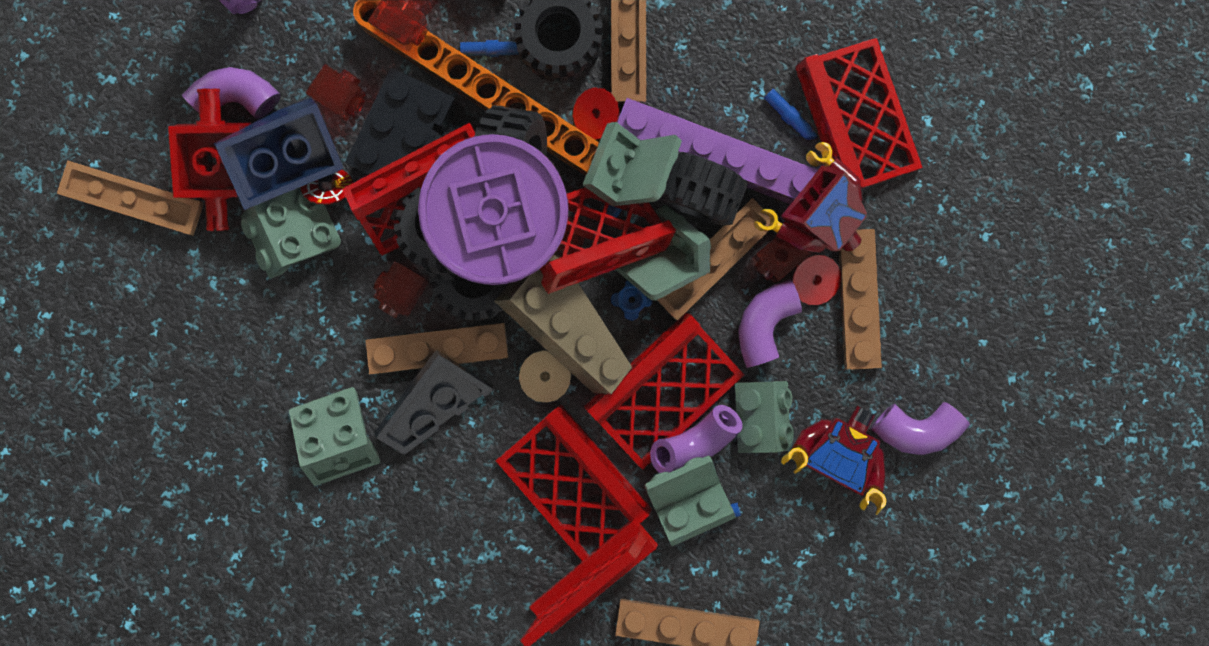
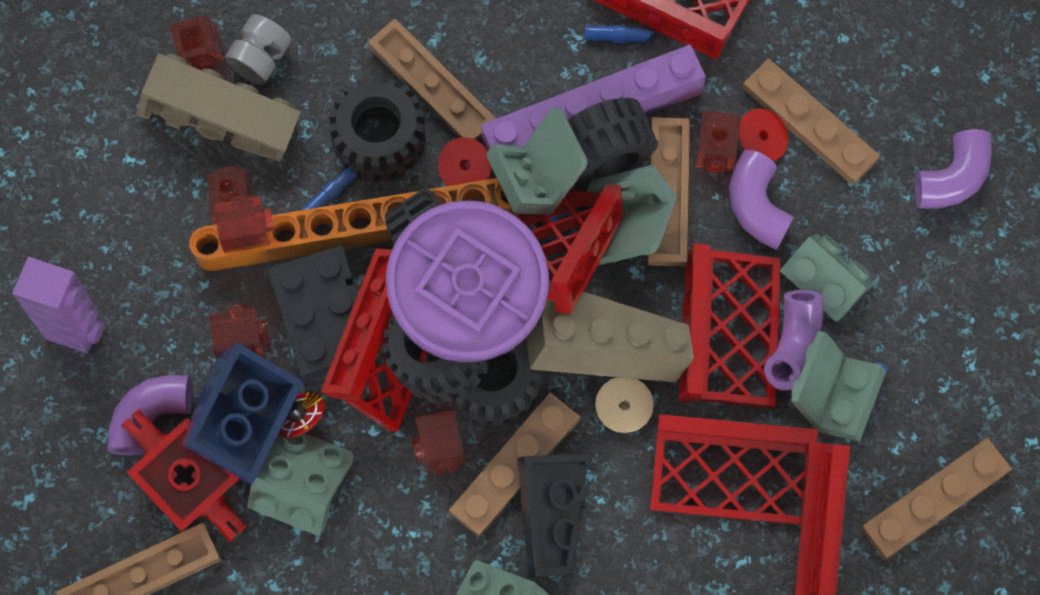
camera: 45 degrees left, 15 degrees down
(630, 309) = (641, 273): blue plate -> none
(825, 209) = (719, 70): dark red torso -> none
(844, 455) = (921, 245): torso -> none

